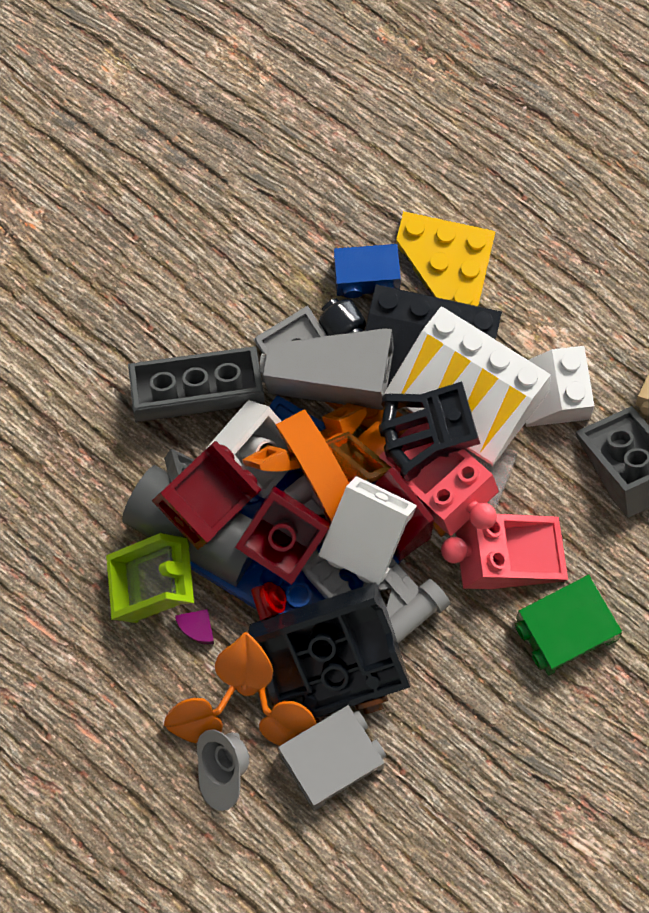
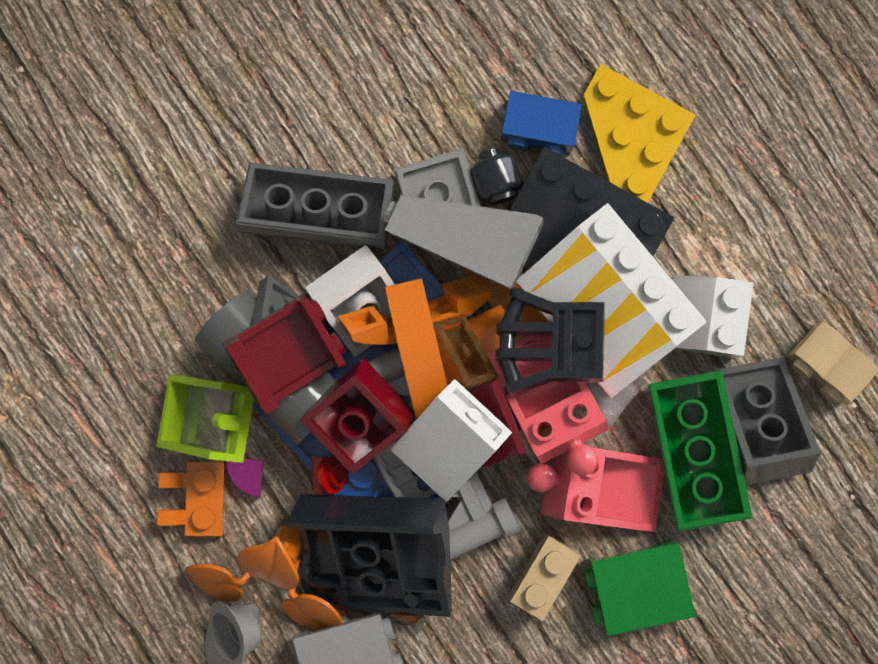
camera: 15 degrees right, 15 degrees up
(164, 656) = (204, 498): none -> orange plate
(482, 637) = (543, 576): none -> tan brick
(583, 496) = (700, 451): none -> green brick

